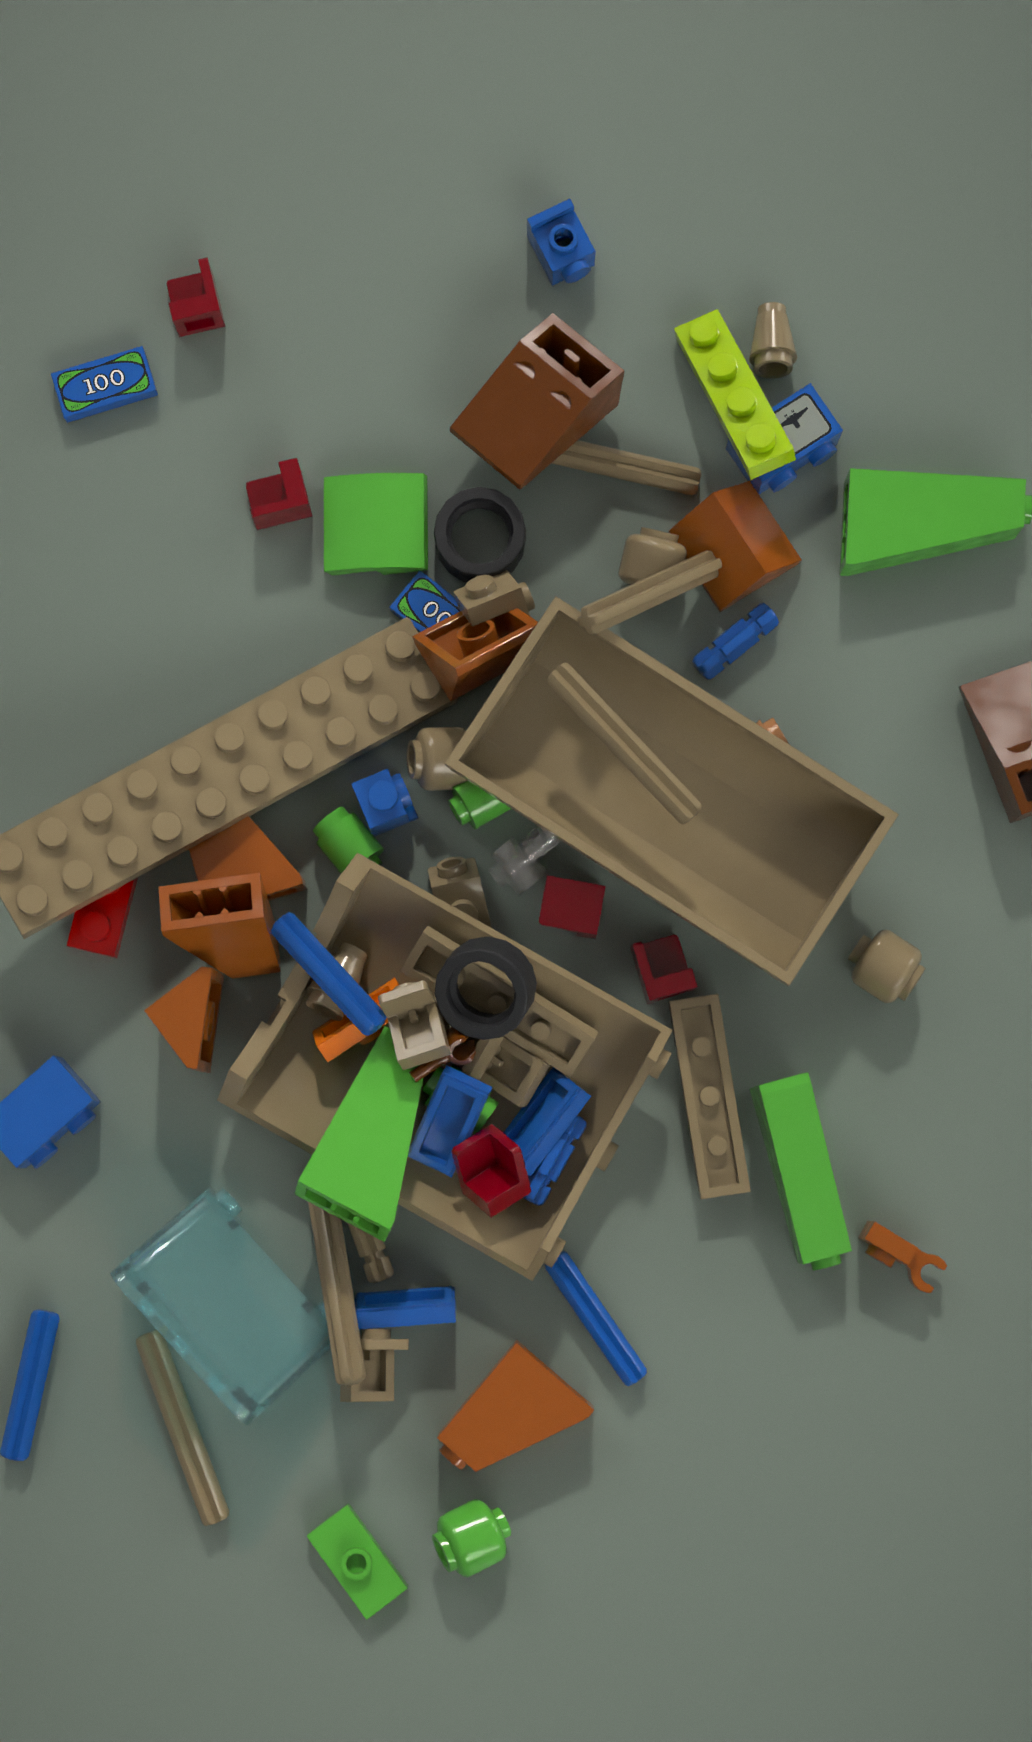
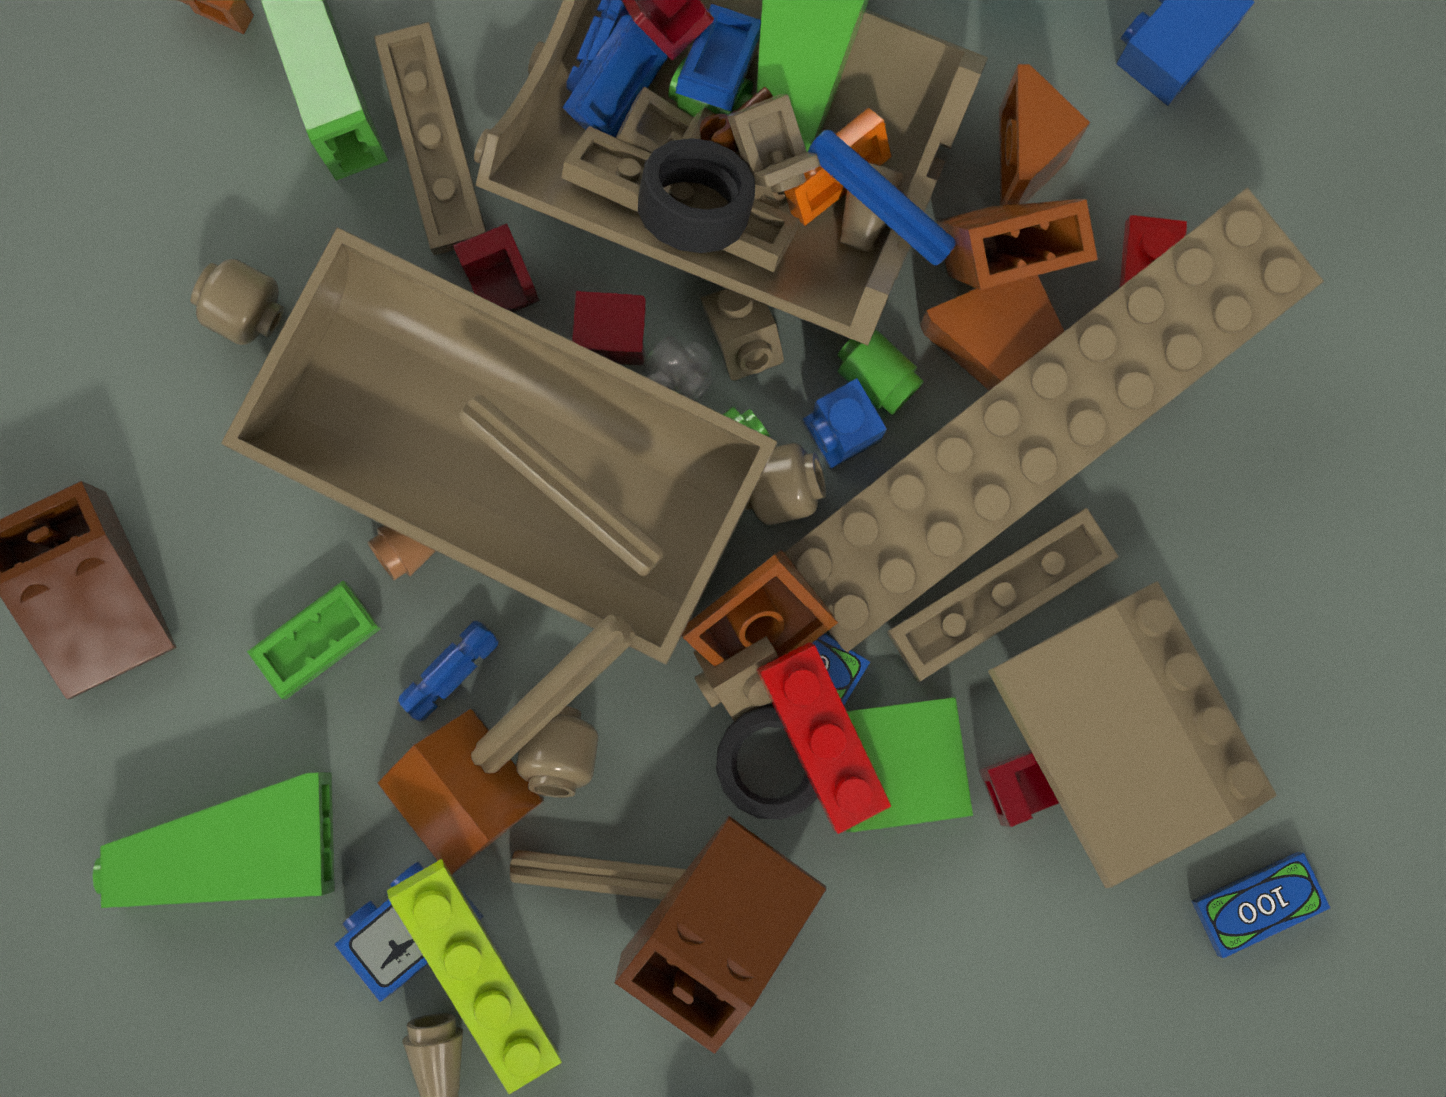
camera: 170 degrees right, 0 degrees up
(189, 519) = (1132, 734): none -> dark tan slope
(195, 301) = (1166, 1026): dark red panel -> none
(273, 648) = (1002, 595): none -> dark tan plate
(436, 541) = (823, 737): none -> red plate
(843, 677) = (314, 640): none -> bright green plate

